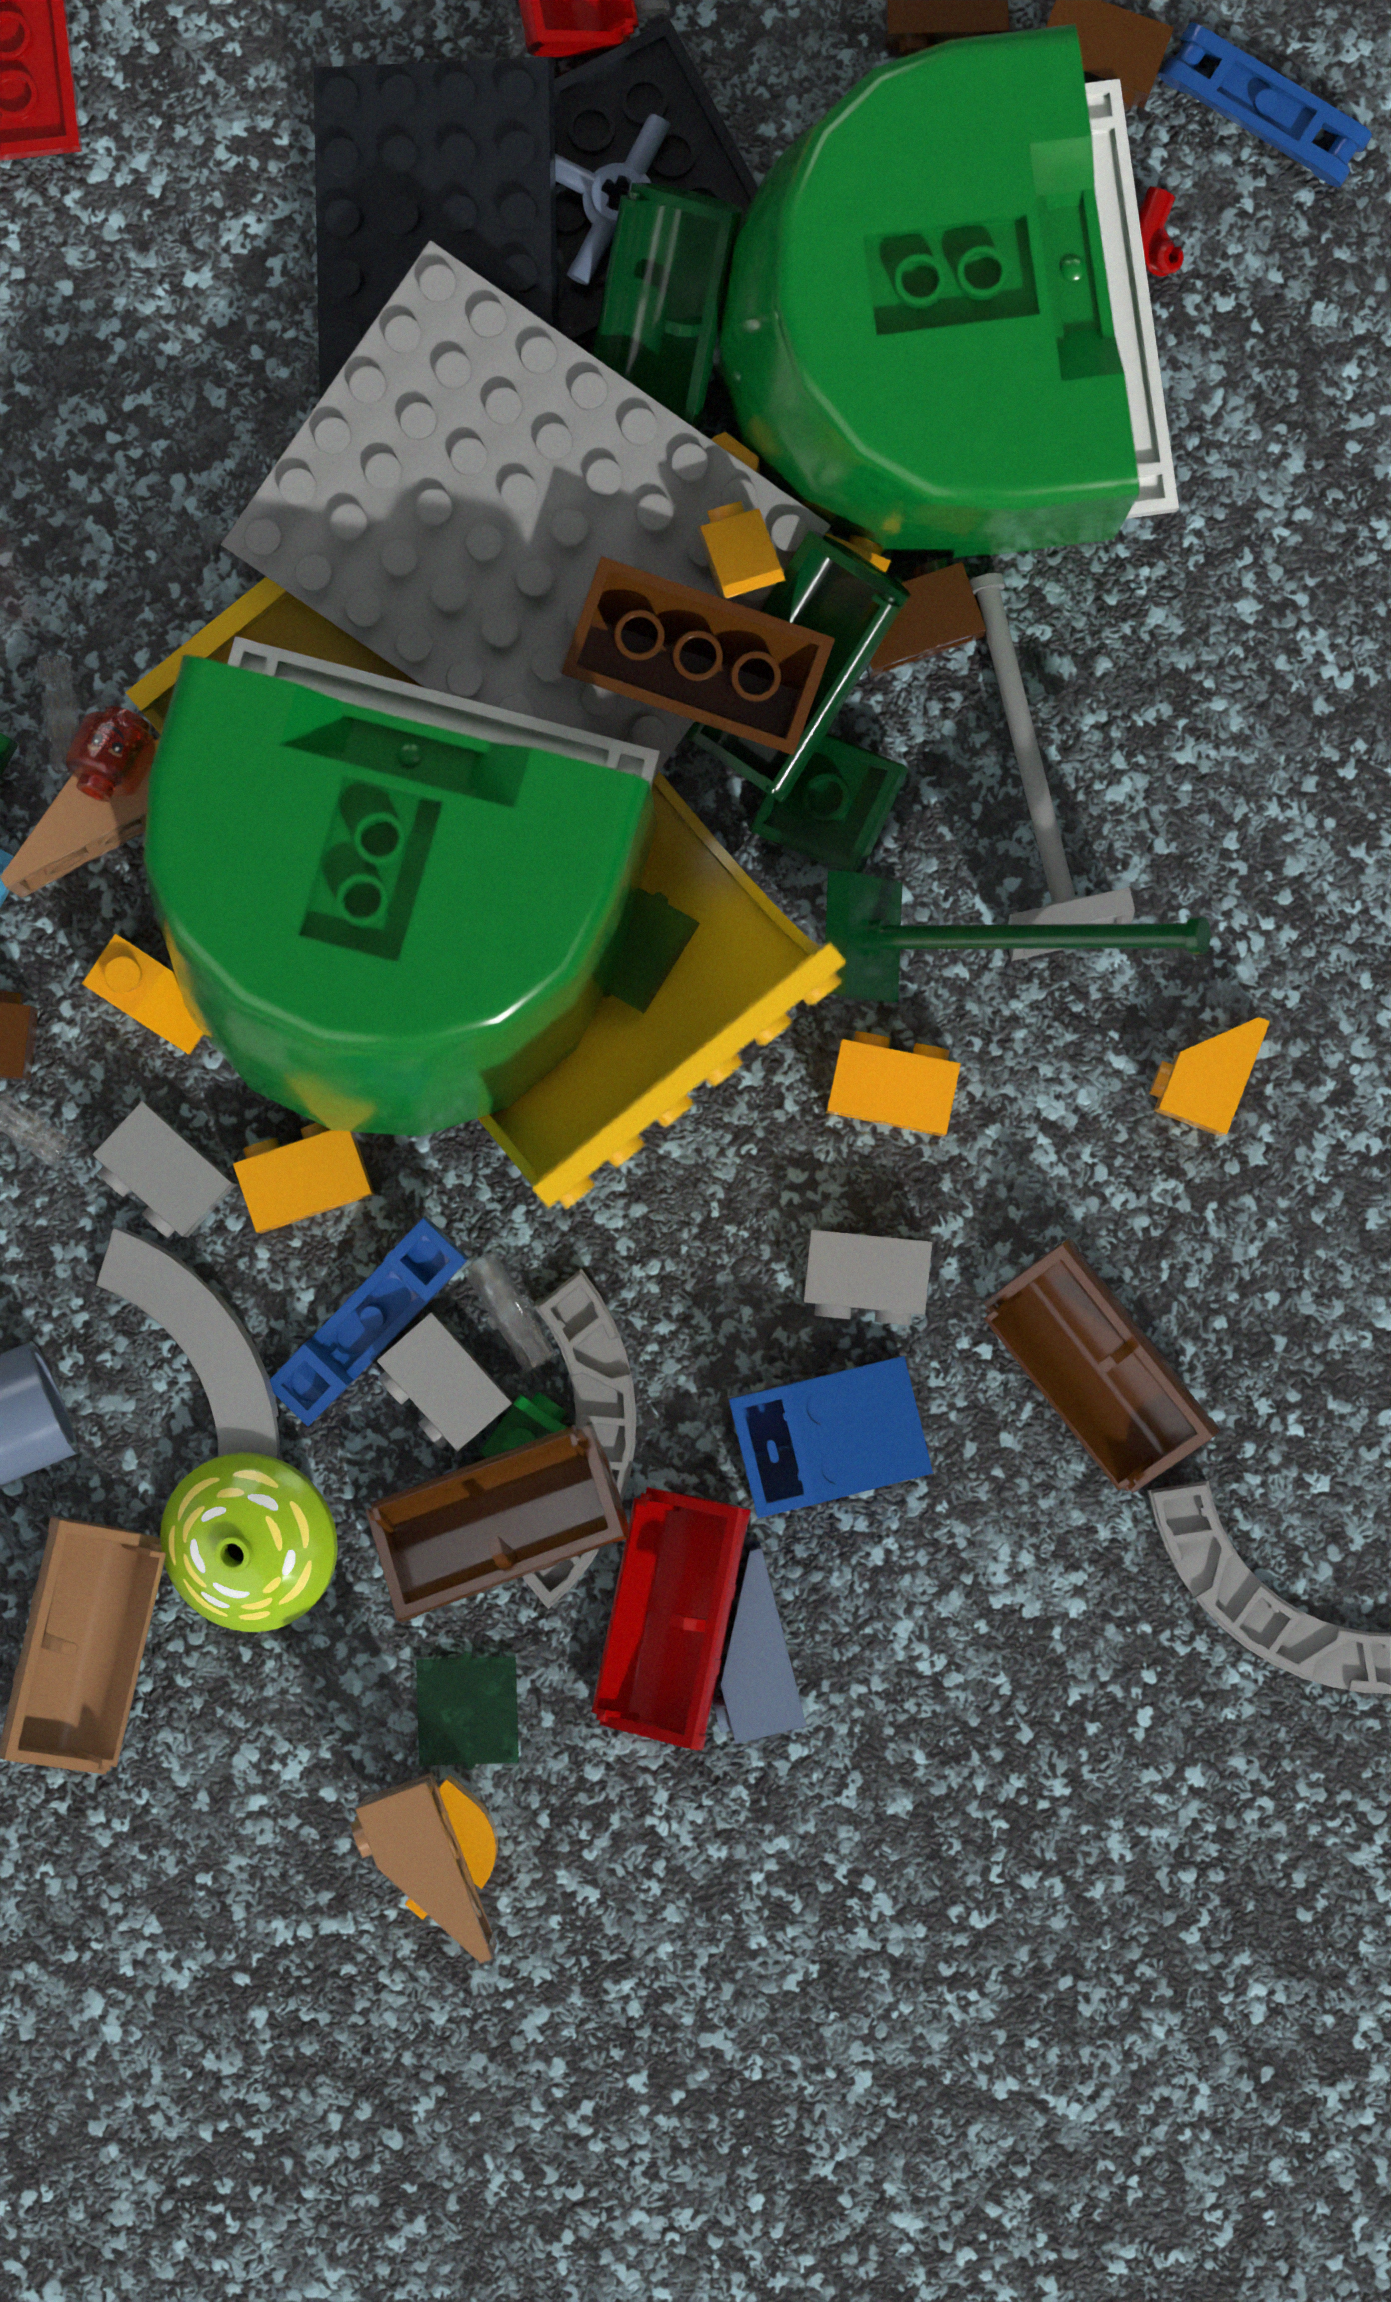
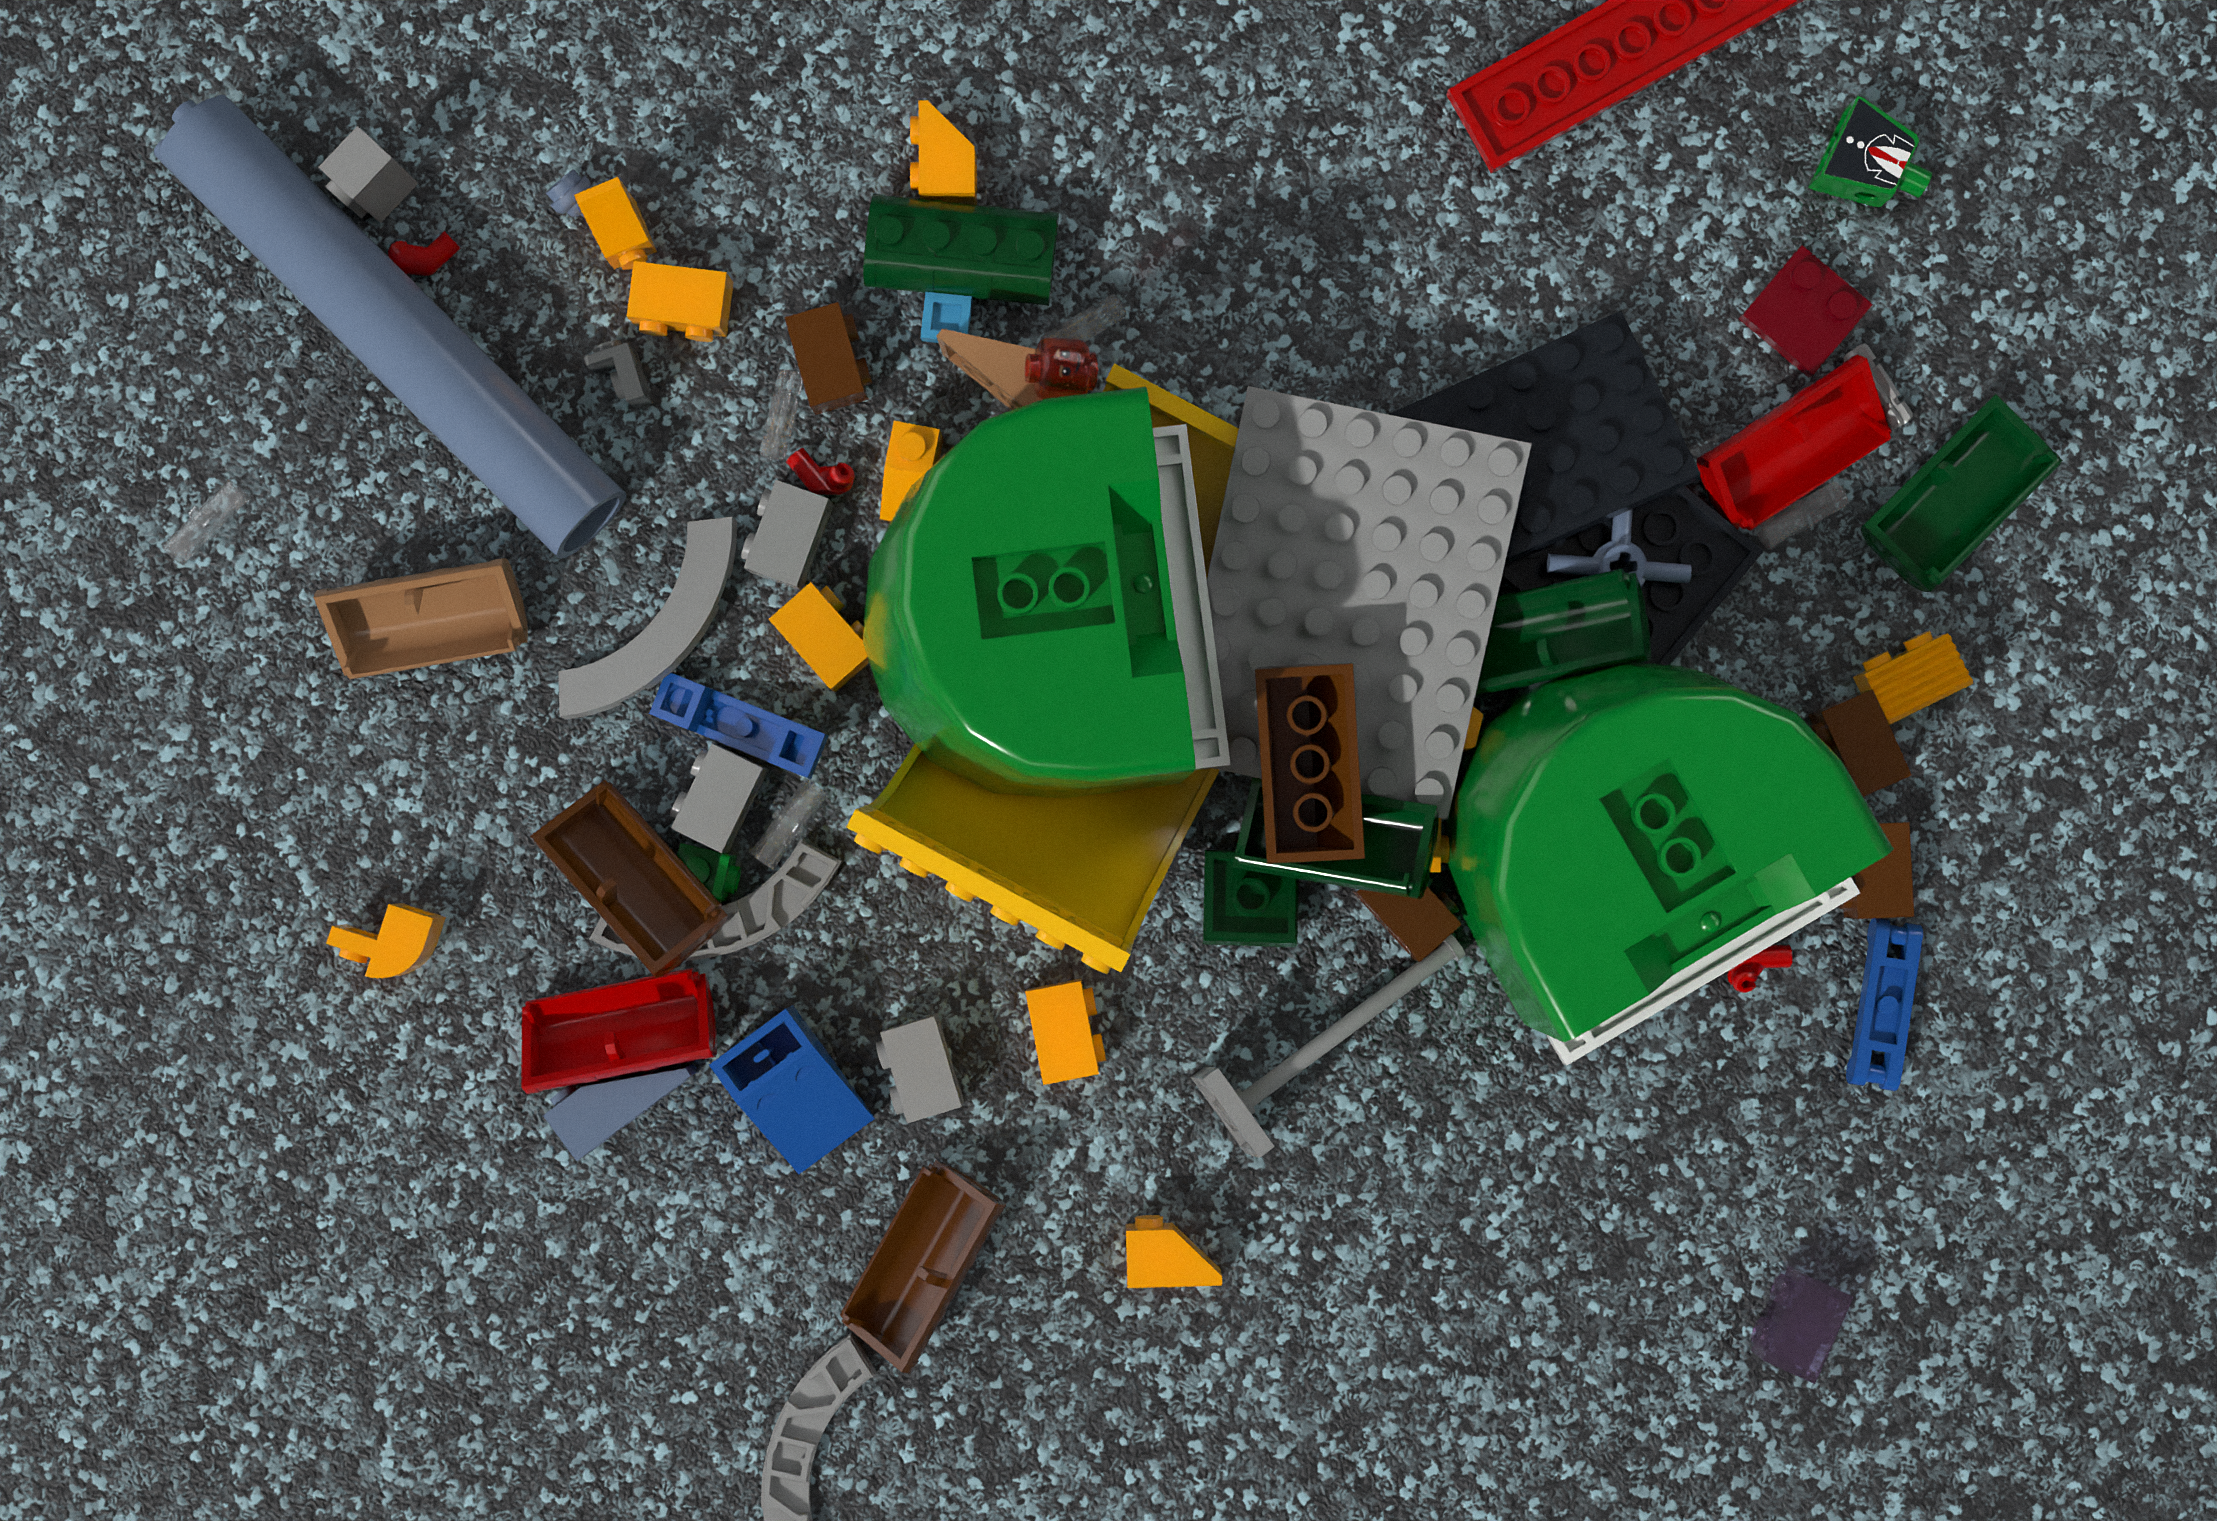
camera: 65 degrees right, 0 degrees up
(112, 1103) = (821, 479): none -> red arm
(276, 1523) = (569, 711): lime dish -> none
(421, 1855) = (359, 927): medium nougat slope -> none
(467, 1710) = (495, 911): clear green piece -> none
(650, 949) = (1087, 817): clear green piece -> none
(739, 550) = (1399, 762): light orange slope -> none
(868, 935) = (1161, 969): dark green tile -> none

